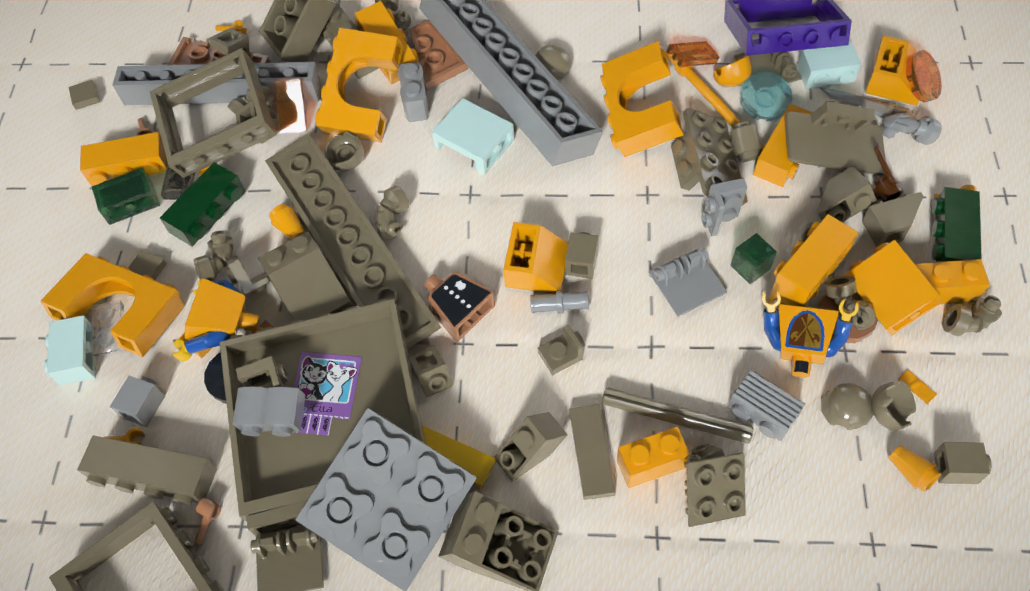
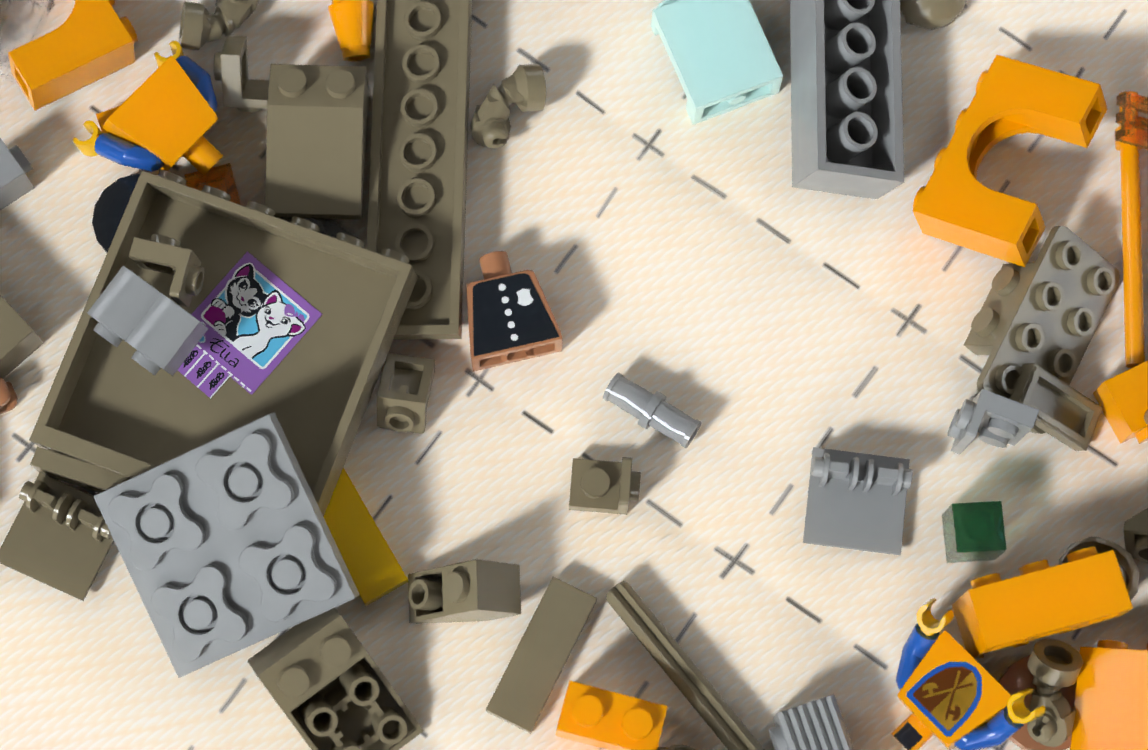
camera: 25 degrees right, 15 degrees up
(534, 259) = (661, 323): light orange slope -> none
(581, 255) = (734, 357): dark tan brick -> none
(746, 141) = (1116, 337): dark tan brick -> none
(756, 184) = (1061, 408): none -> dark tan tile

